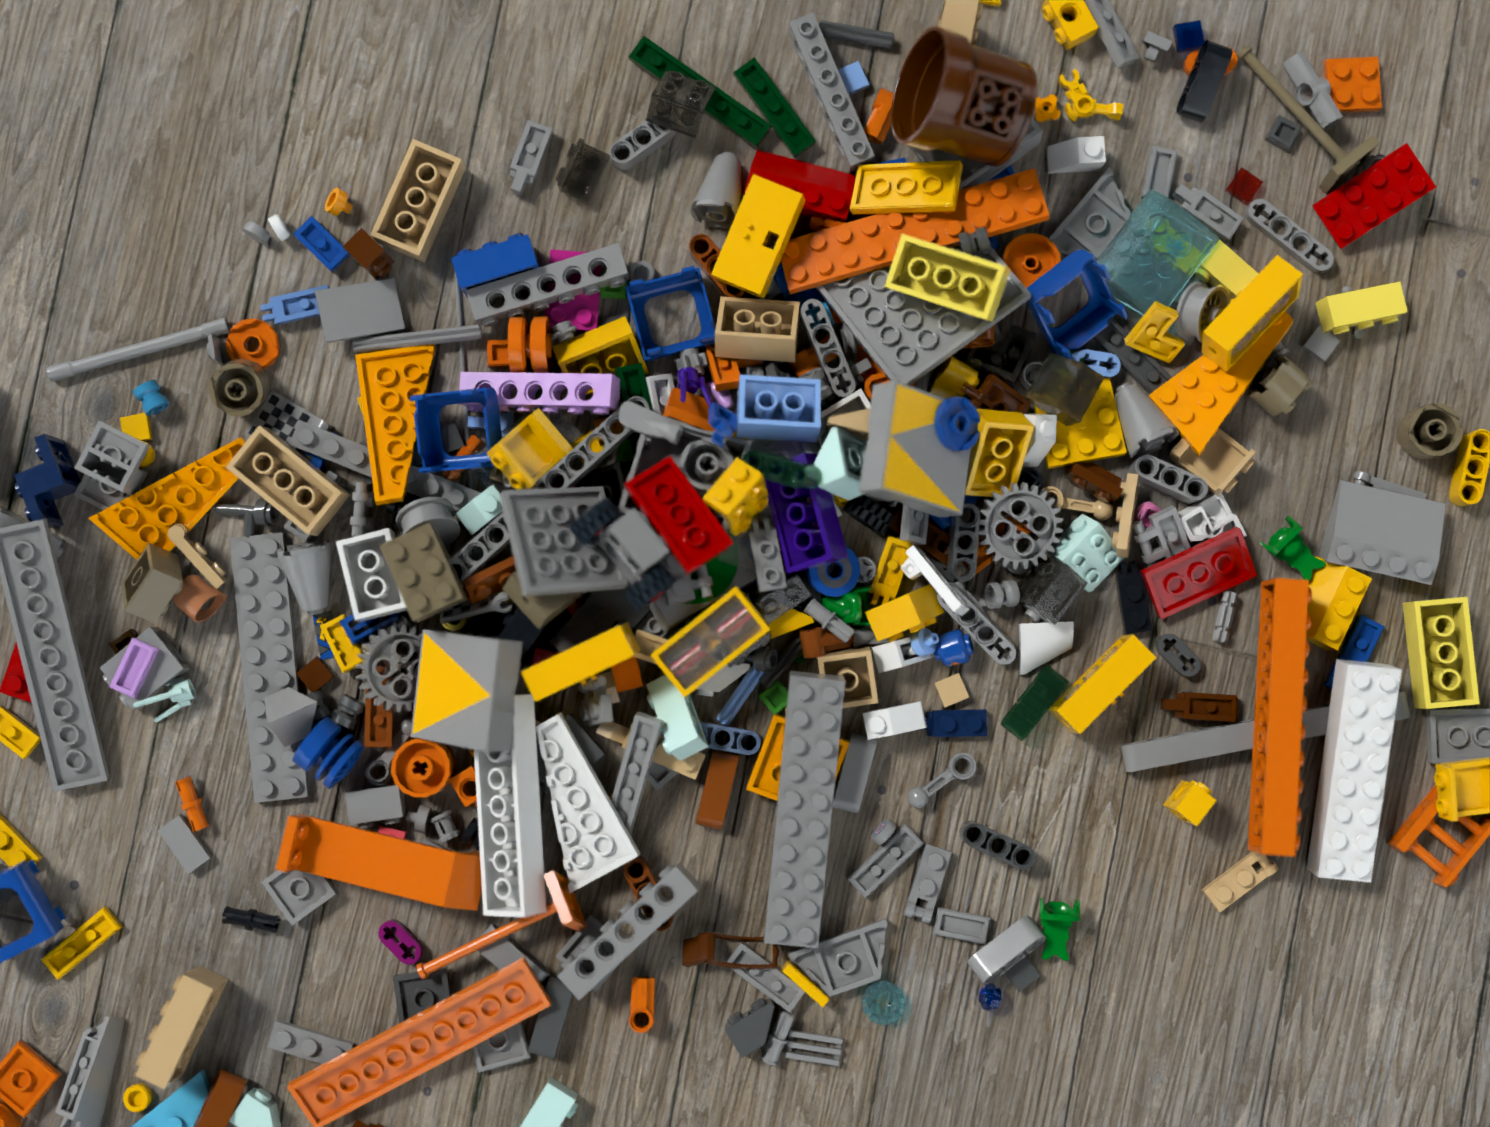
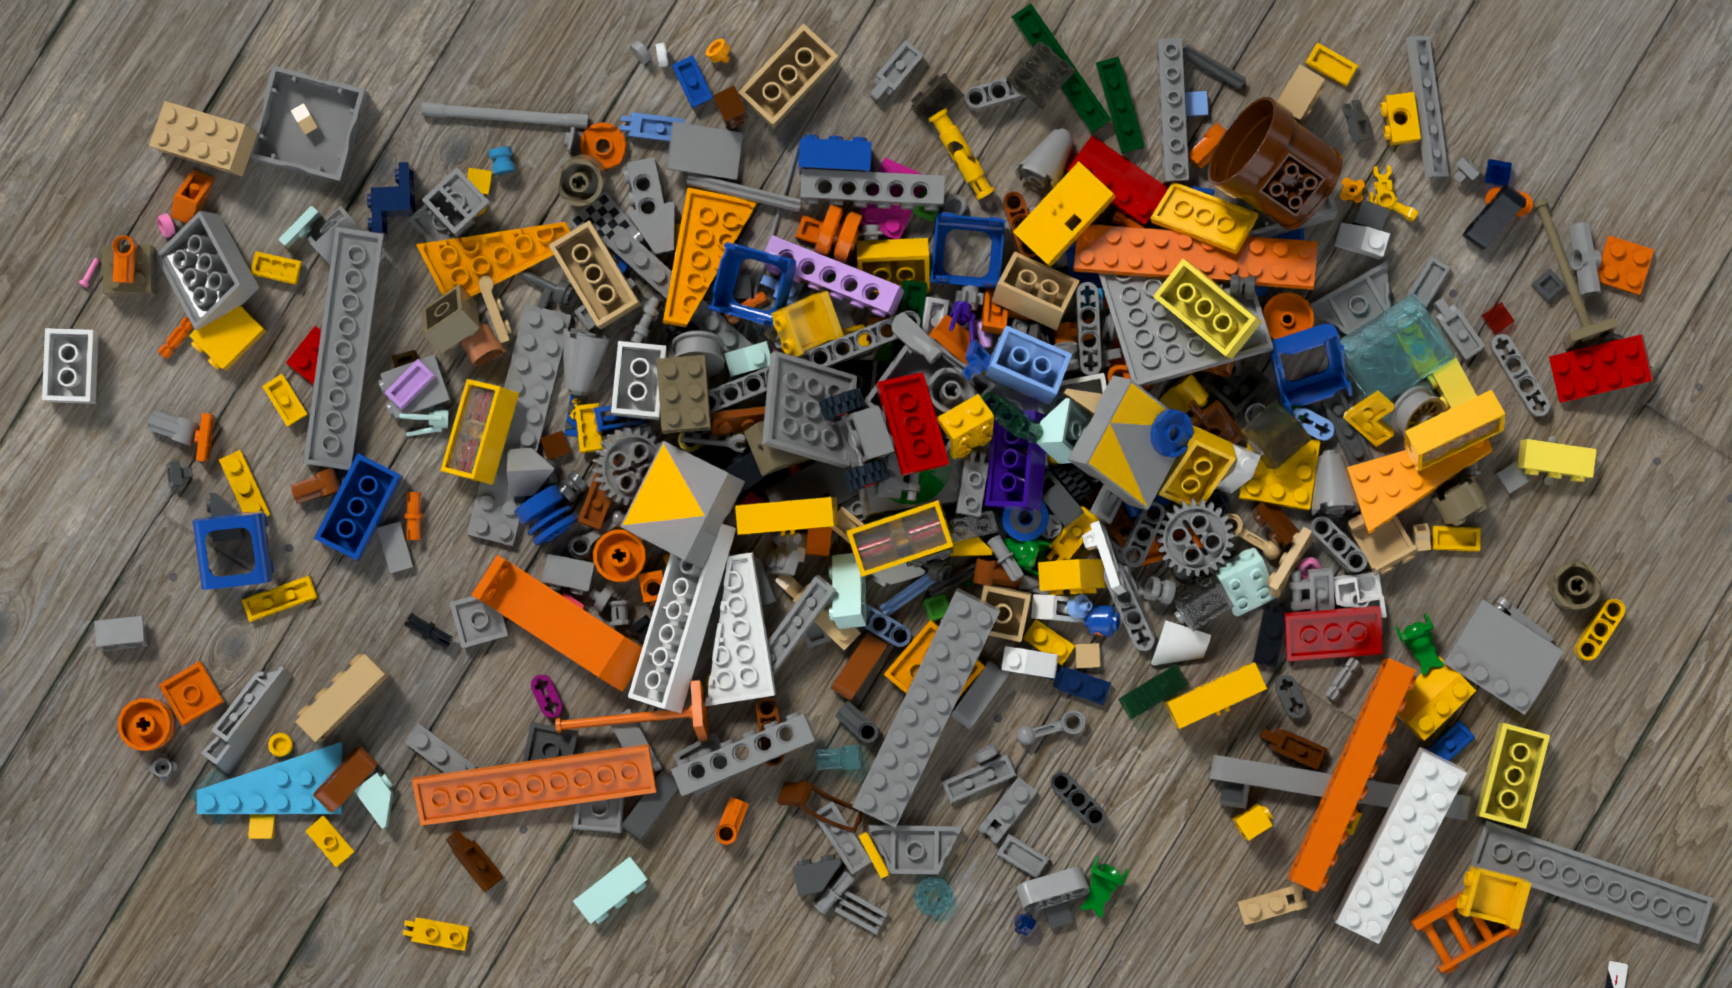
camera: 20 degrees right, 0 degrees up
(82, 807) = (321, 485): none -> dark orange piece
(128, 817) = (358, 507): none -> blue brick
(226, 690) = (479, 431): none -> yellow brick
(340, 404) = (659, 226): none -> light grey brick
(641, 226) = (968, 164): none -> yellow piece
(735, 848) = (856, 721): none -> dark grey piece
(737, 891) = (846, 757): none -> clear light blue piece
(864, 539) = (1059, 500): none -> dark grey slope
(905, 690) = (1048, 641): none -> yellow plate
(1027, 37) = (1358, 124): none -> dark grey plate
(1076, 125) = (1371, 215): none -> dark grey panel
(1159, 780) = (1234, 794): none -> dark grey panel
(1251, 438) = (1421, 537): none -> tan piece
(1286, 428) = (1456, 538): none -> yellow tile

